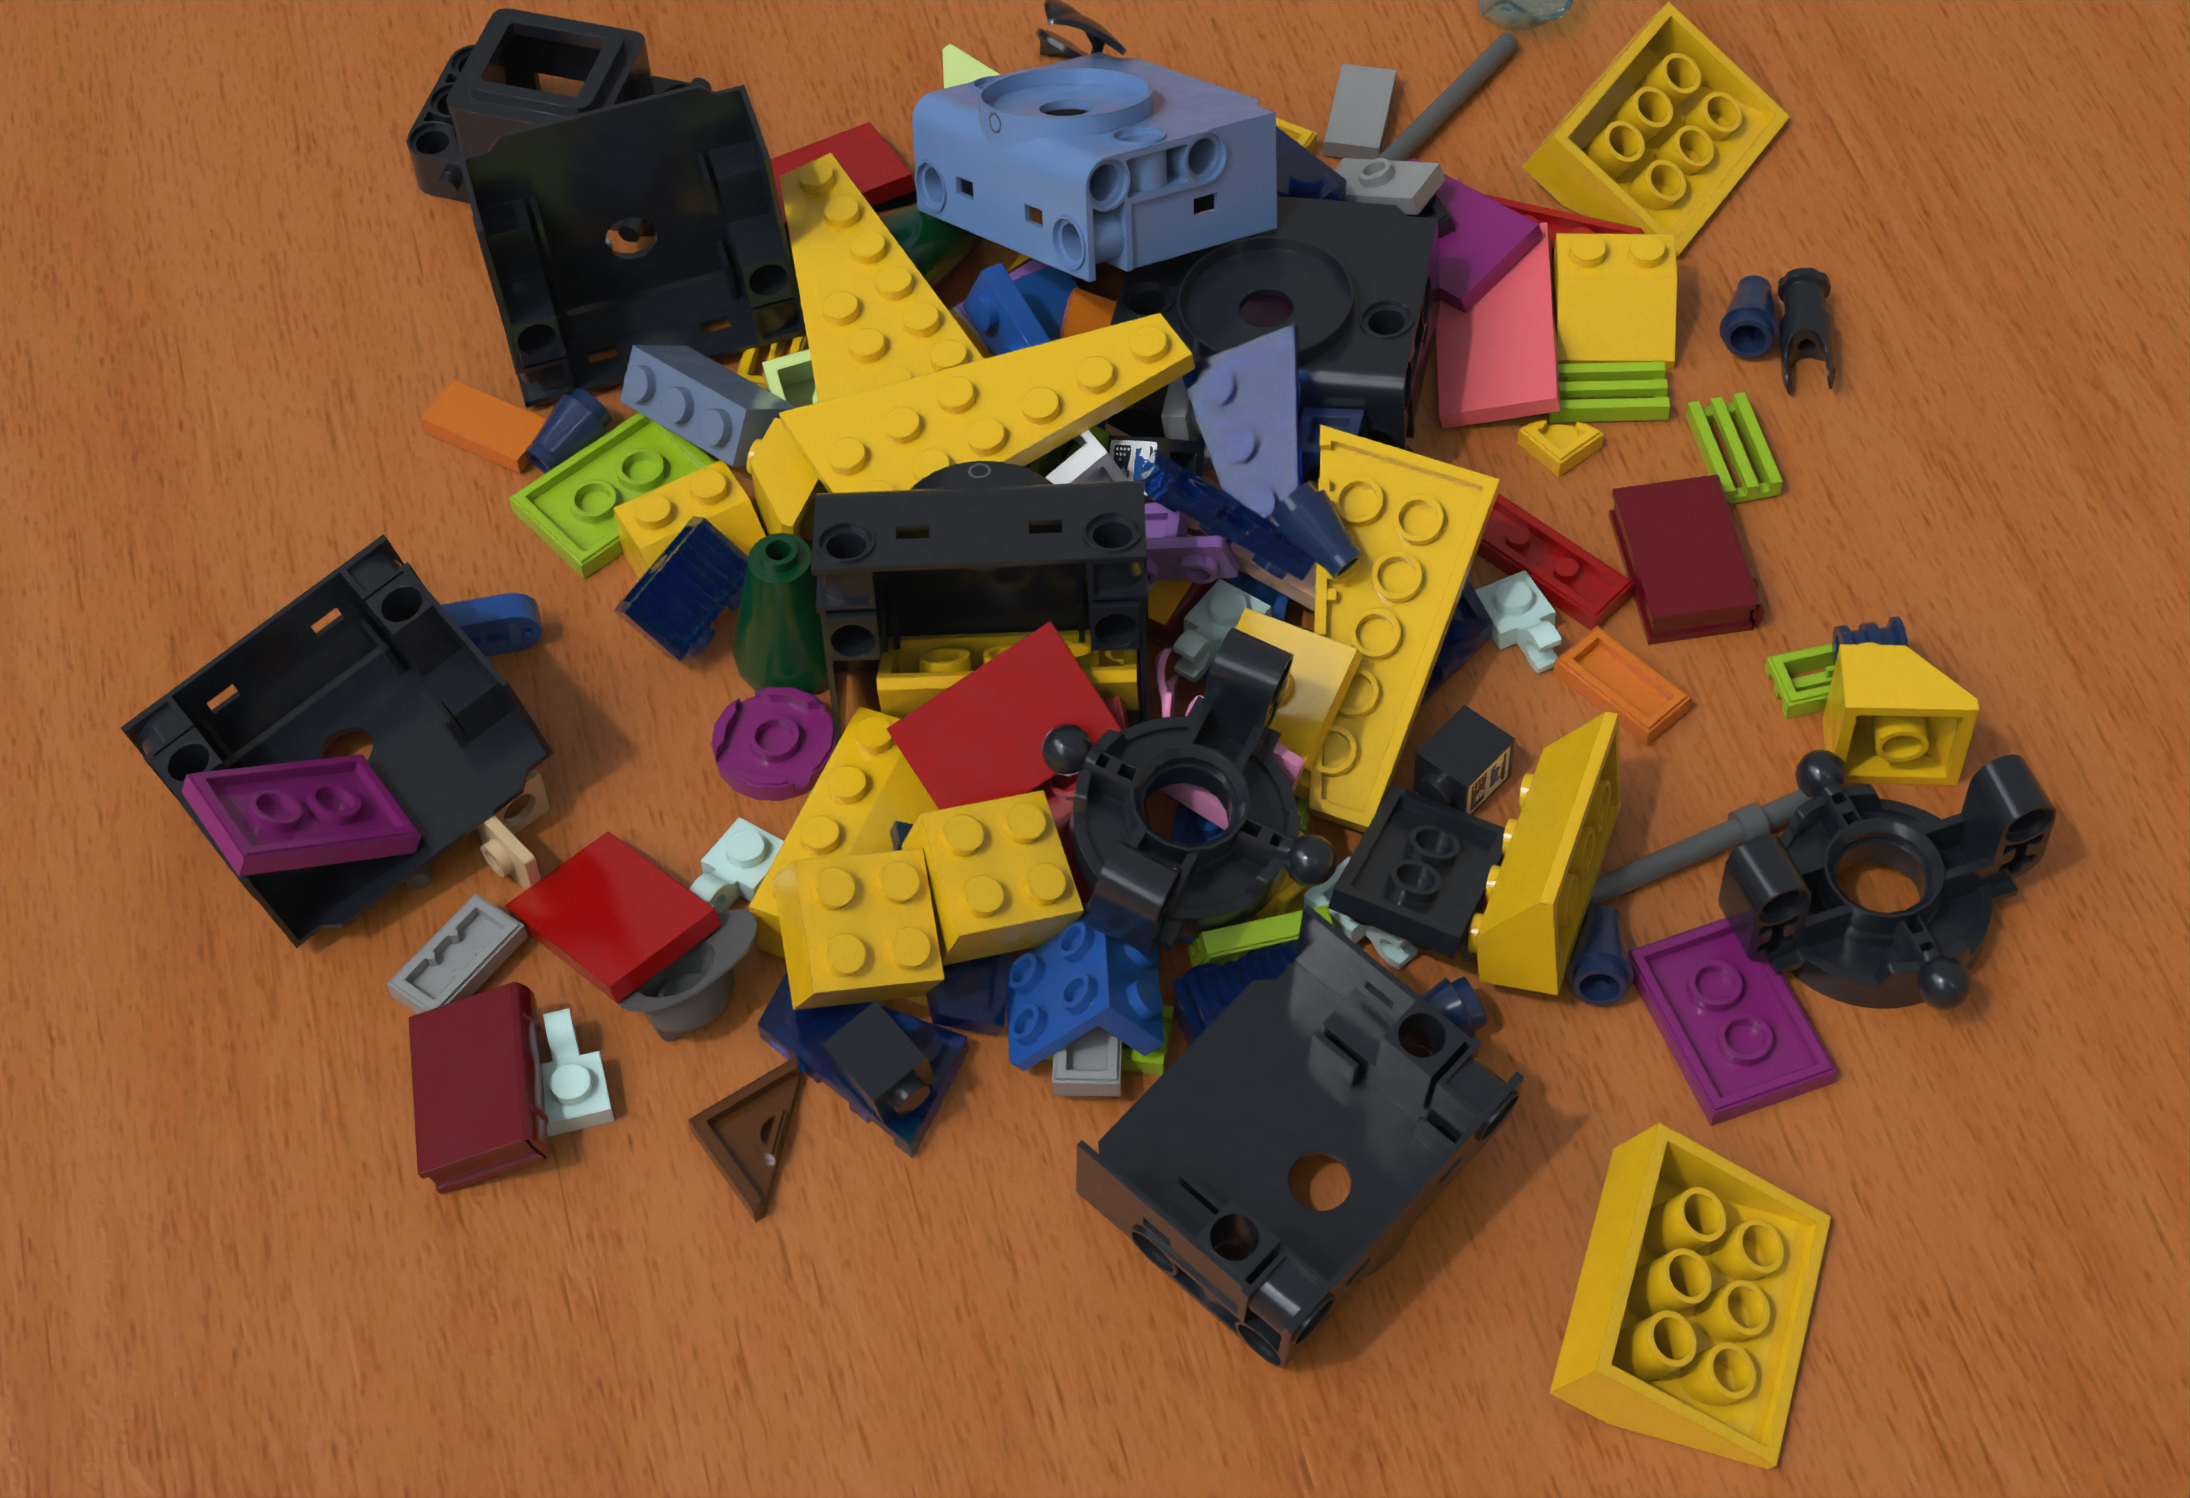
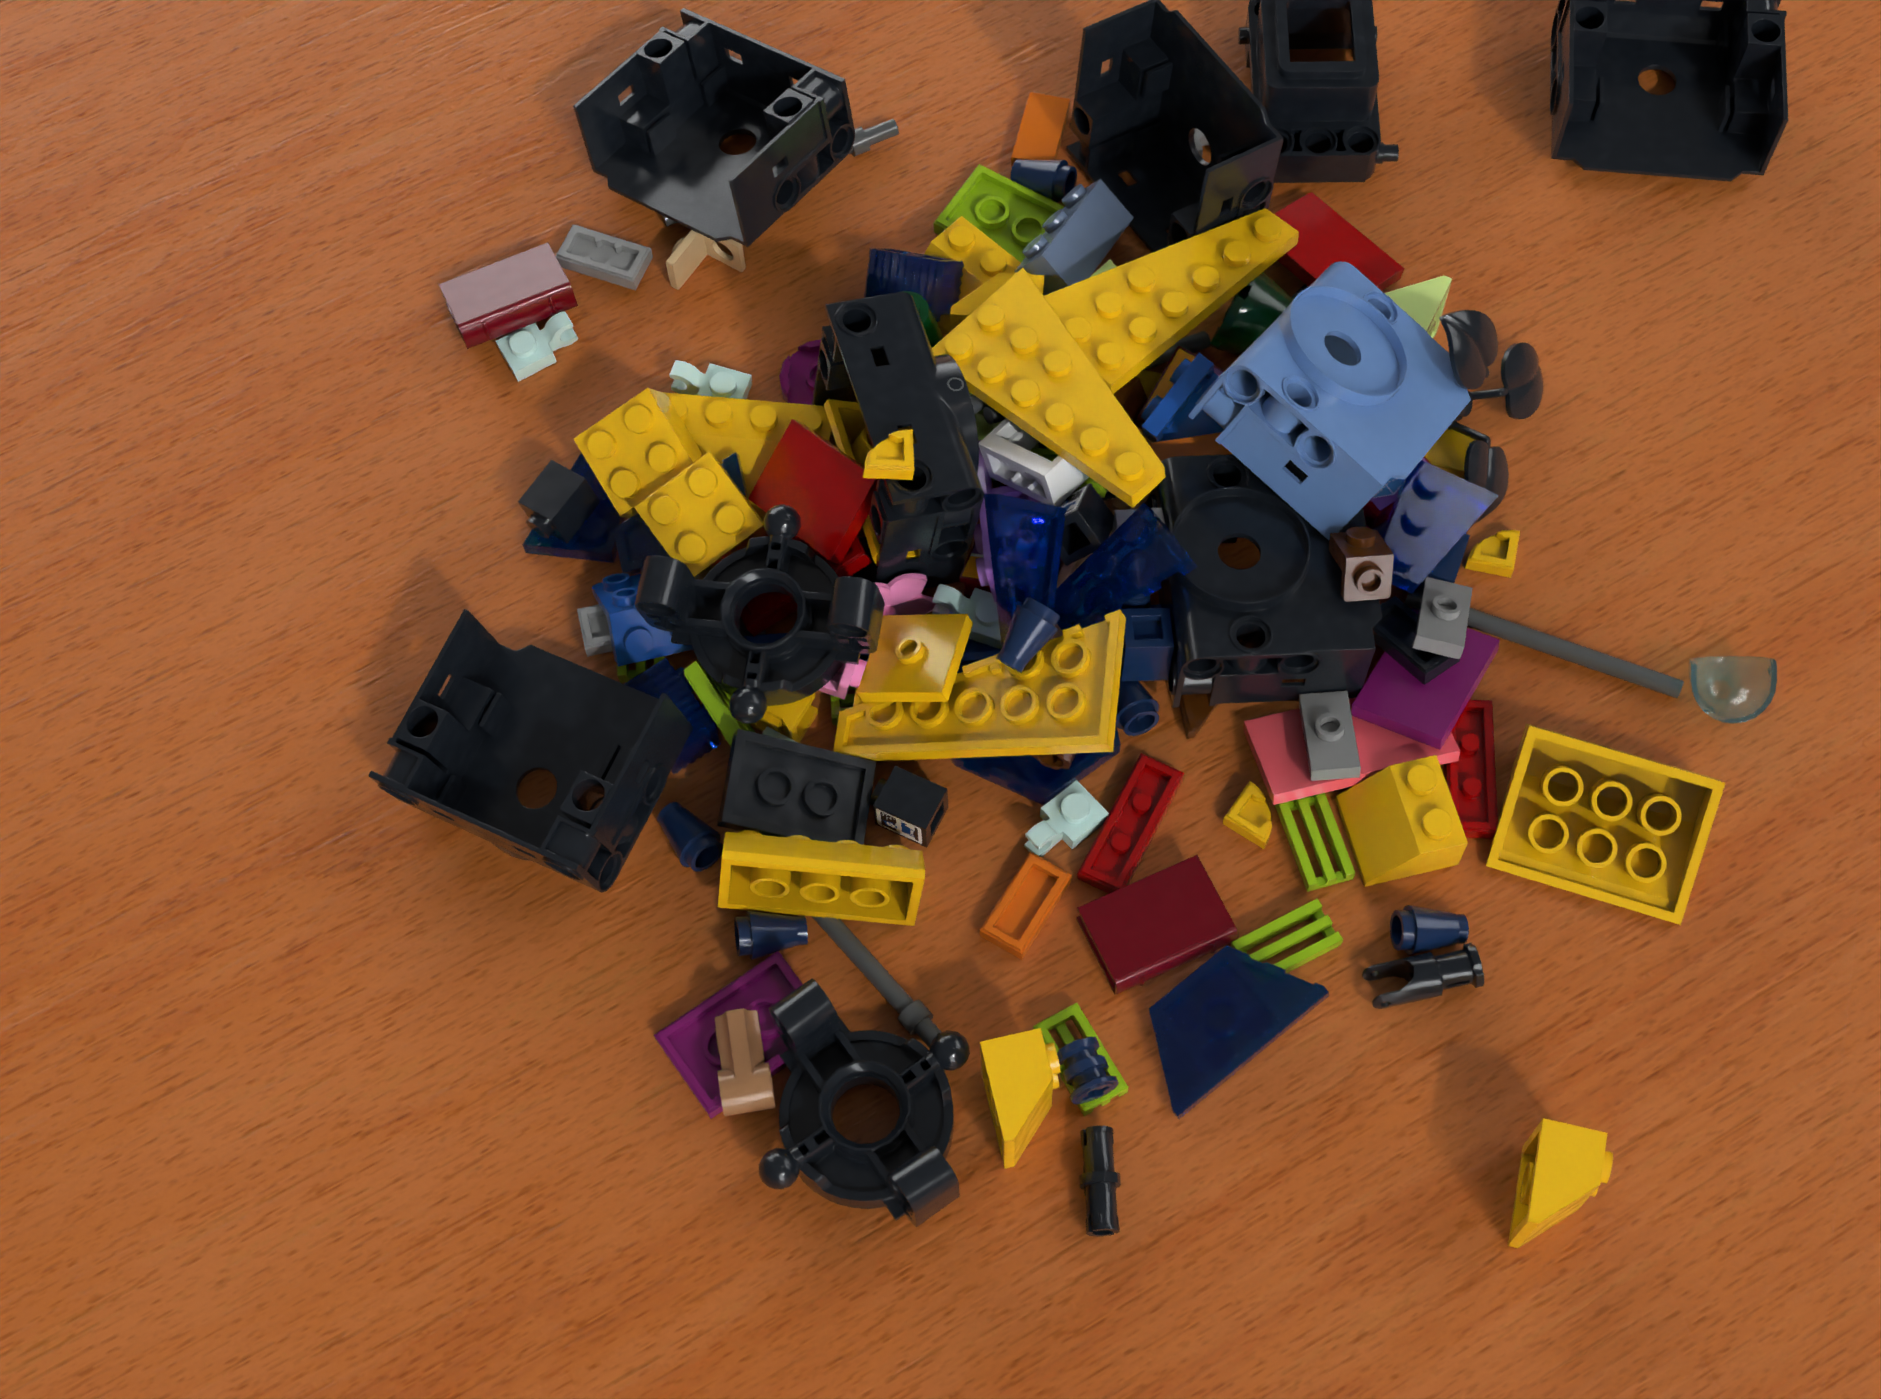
camera: 75 degrees right, 10 degrees up
(300, 814) = (649, 124): magenta tile -> none
(498, 622) = (864, 185): blue beam -> none
(614, 916) = (647, 325): red tile -> none
(699, 982) = (606, 377): dark grey piece -> none
(749, 1132) = (514, 454): reddish brown tile -> none
(1086, 537) = (892, 458): none -> yellow tile
(1325, 188) = (1364, 564): none -> reddish brown bracket
(1360, 112) = (1553, 597): light grey tile -> none
(1494, 330) = (1329, 736): none -> light grey plate
(1692, 1300) = (495, 1048): yellow slope -> none
(1812, 1002) = (744, 1075): none -> medium nougat piece
(1827, 521) = (1224, 1020): none -> clear blue wing
(2006, 683) = (1099, 1181): none -> black pin
(2086, 271) = (1556, 1176): none -> yellow slope

